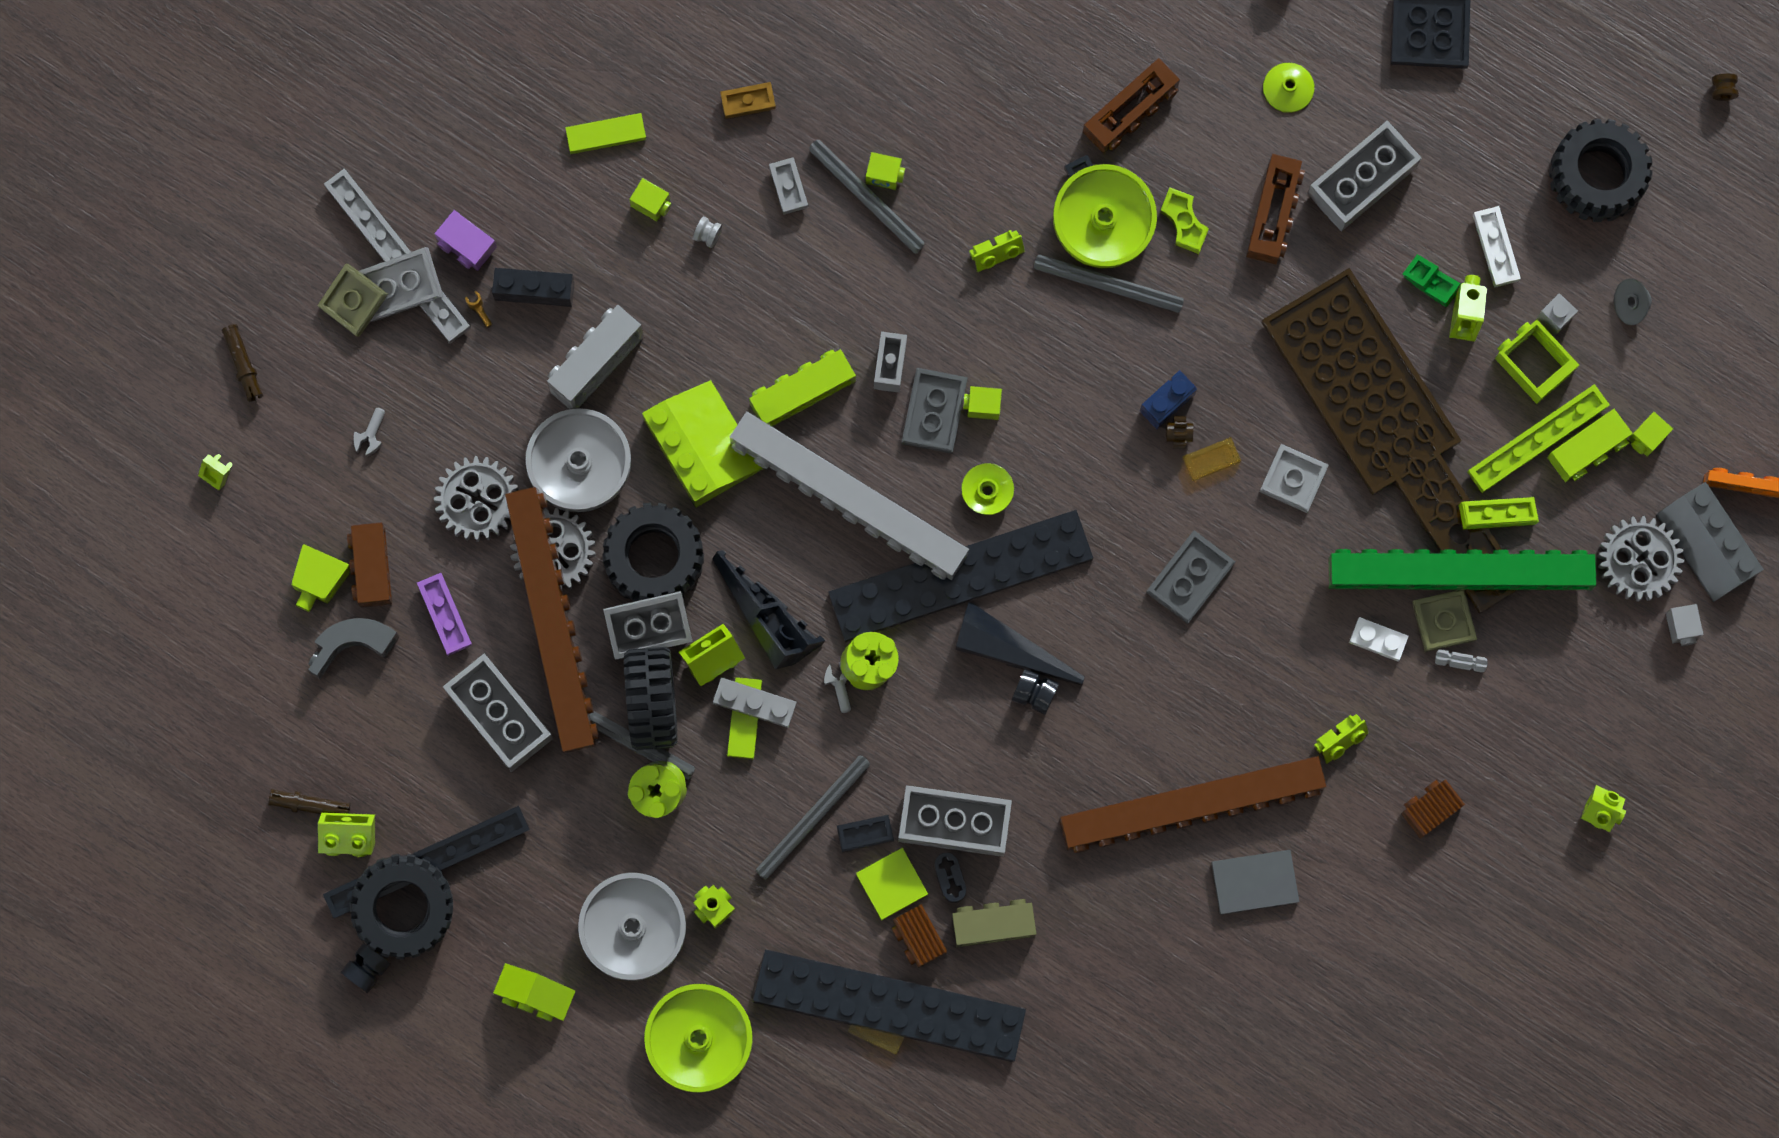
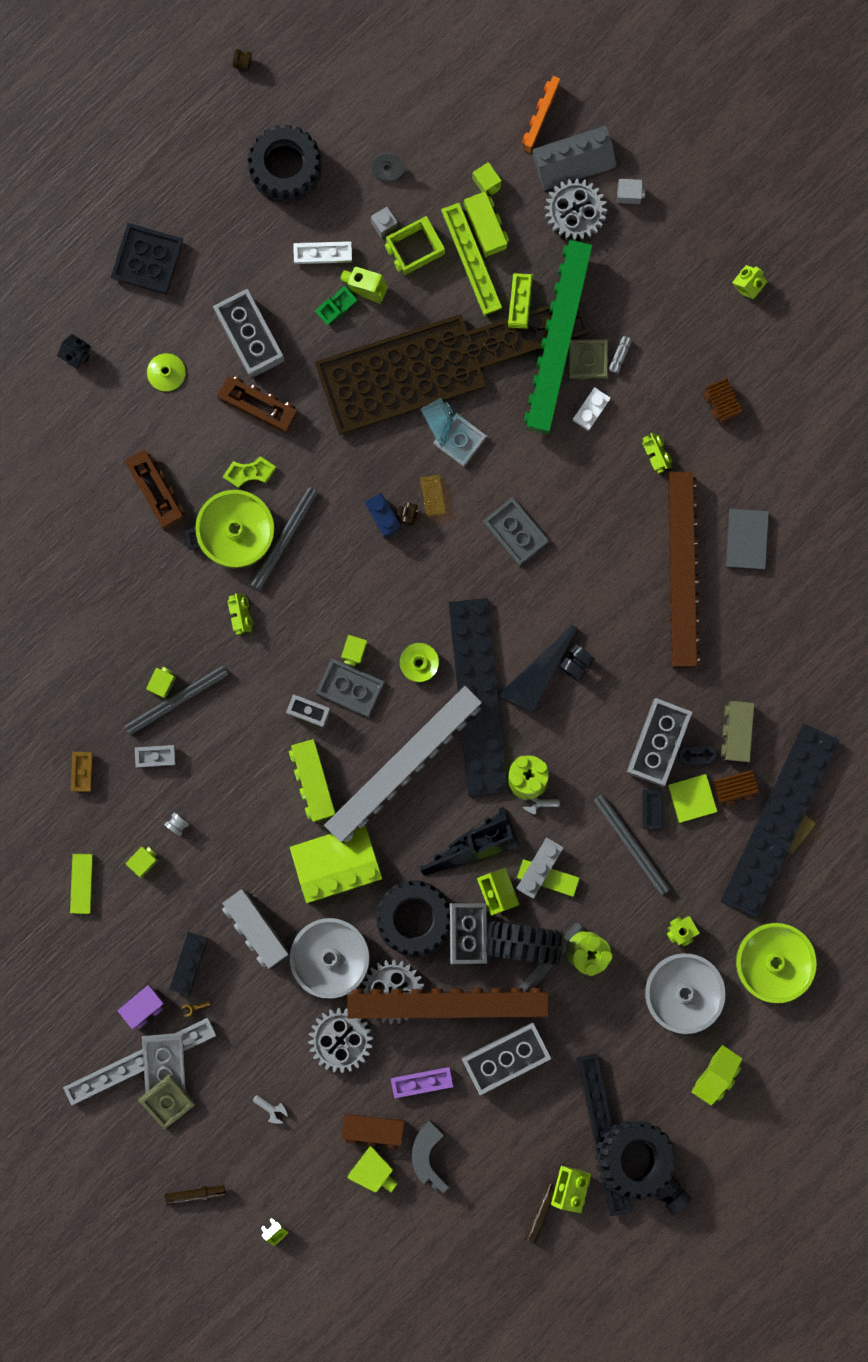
camera: 75 degrees left, 5 degrees up
(1312, 442) = (439, 419): none -> clear light blue slope

